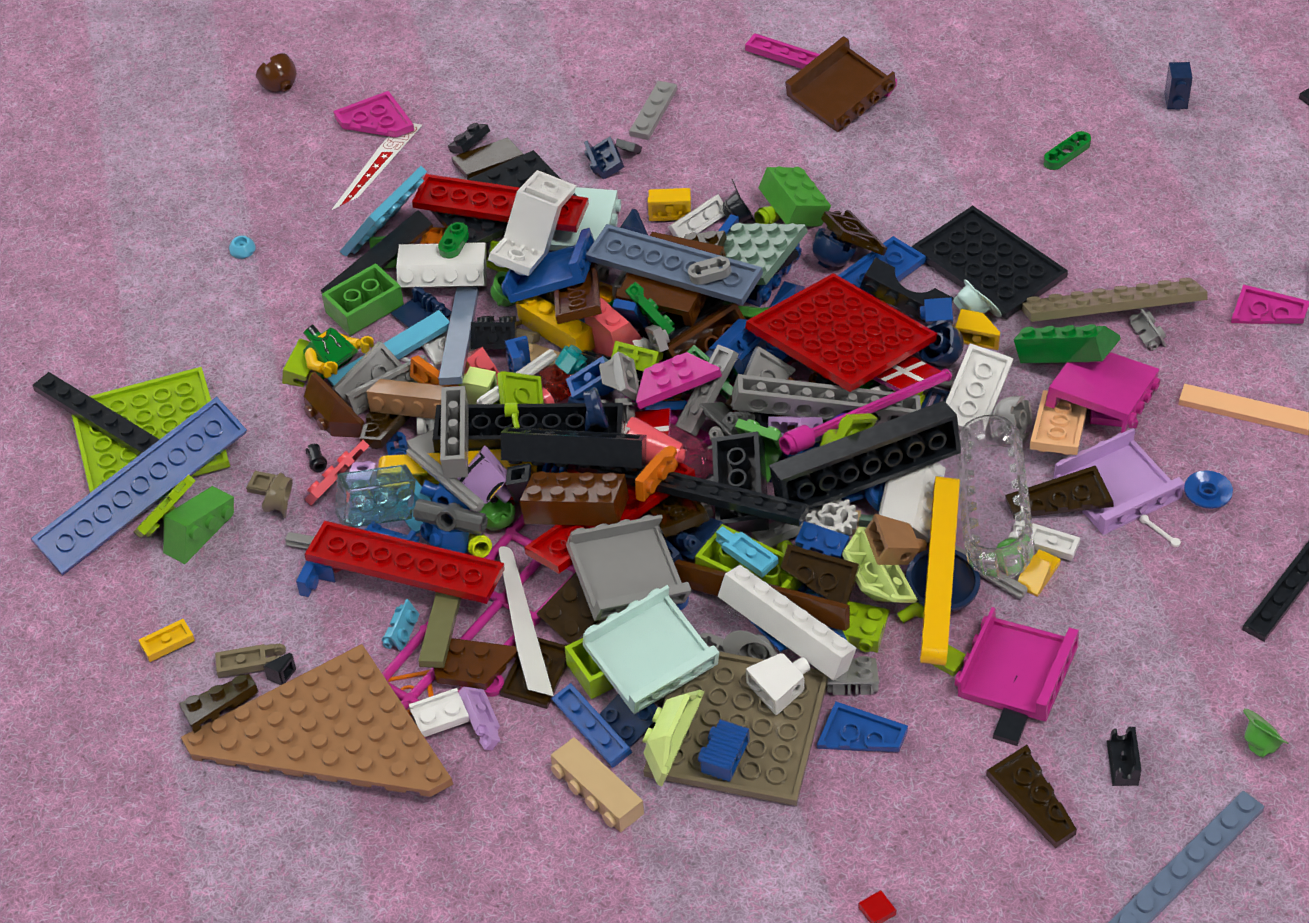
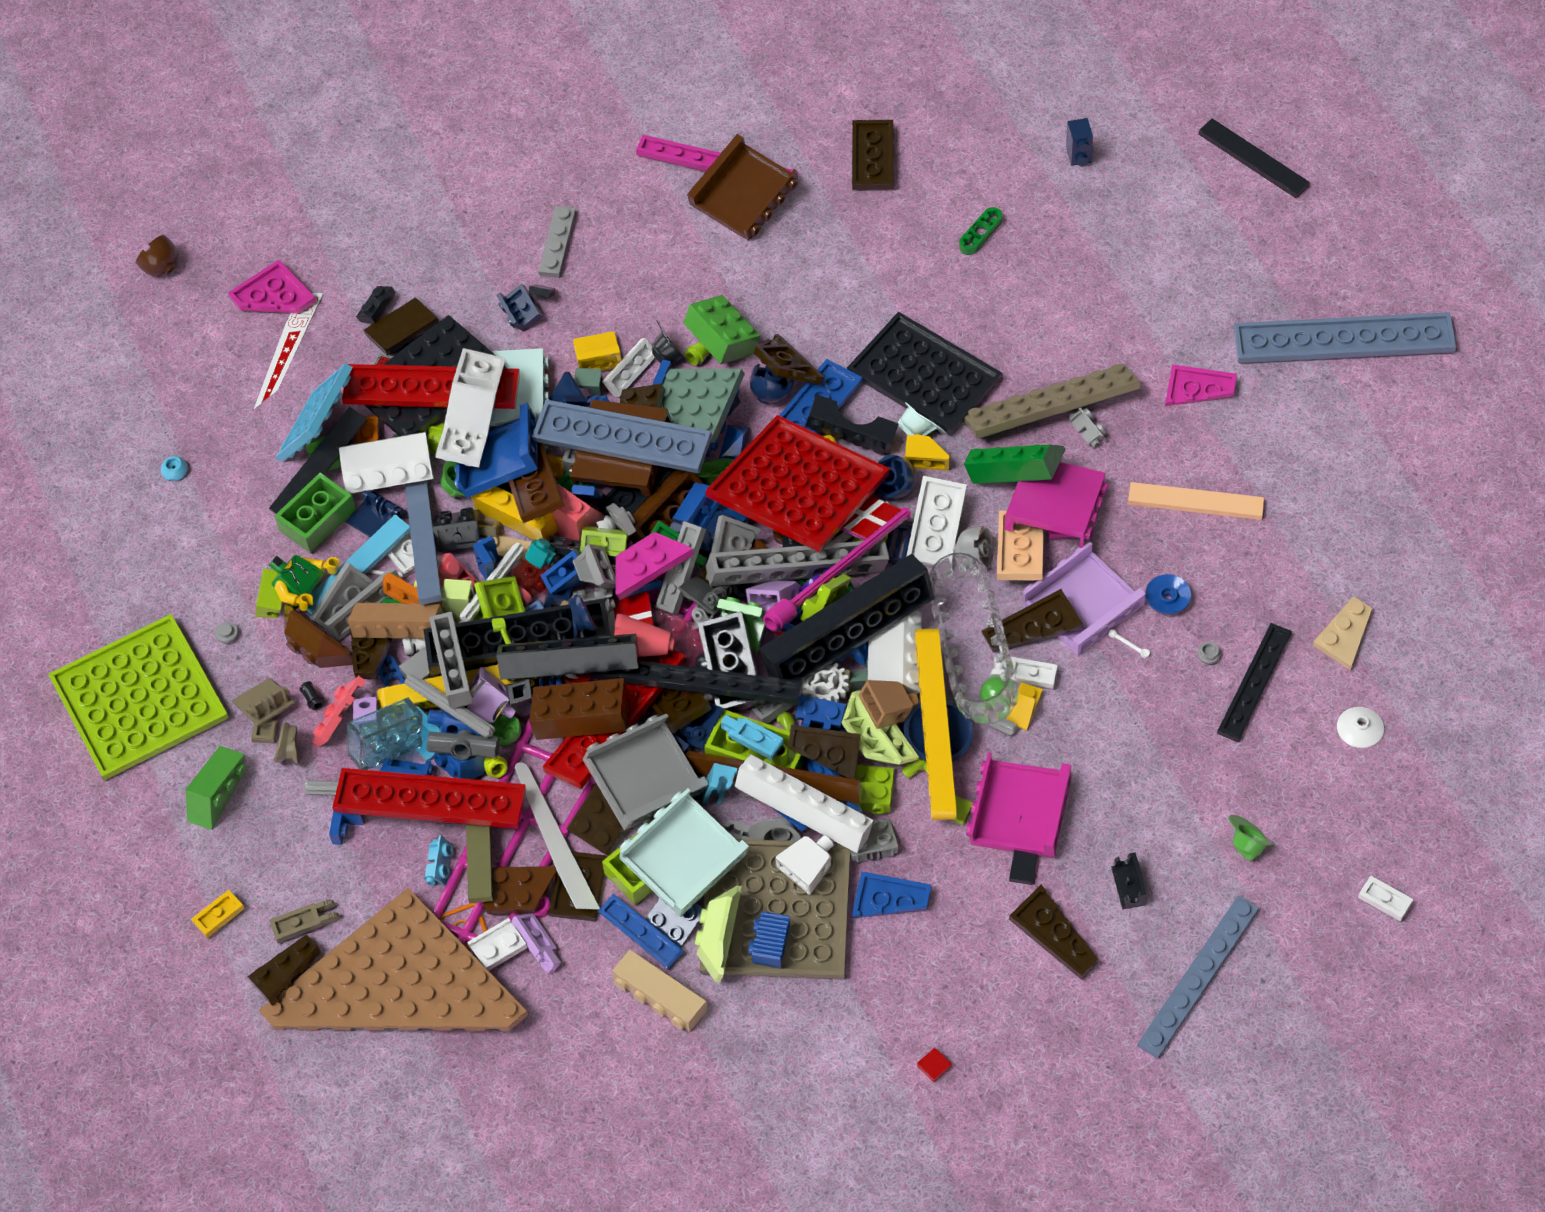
camera: 10 degrees left, 10 degrees up
(94, 413) = (90, 689): black plate -> none
(138, 486) = (148, 757): plate -> none
(150, 523) = (180, 778): lime wing -> none
(249, 392) = (226, 632): none -> light grey plate
(268, 456) = (264, 701): none -> dark tan hinge
(280, 669) = (336, 926): black slope -> none
(453, 240) = (393, 434): green plate -> none
(649, 308) = (607, 487): green hinge -> none
(655, 472) = (652, 670): orange hinge -> none
(656, 221) = (589, 379): none -> sand green panel
(703, 592) = (719, 780): none -> medium azure hinge
(709, 270) = (660, 442): light grey beam -> none
(937, 310) = (885, 444): blue brick -> none
(972, 75) = (872, 154): none -> dark brown plate
(1244, 550) = (1208, 653): none -> light grey plate

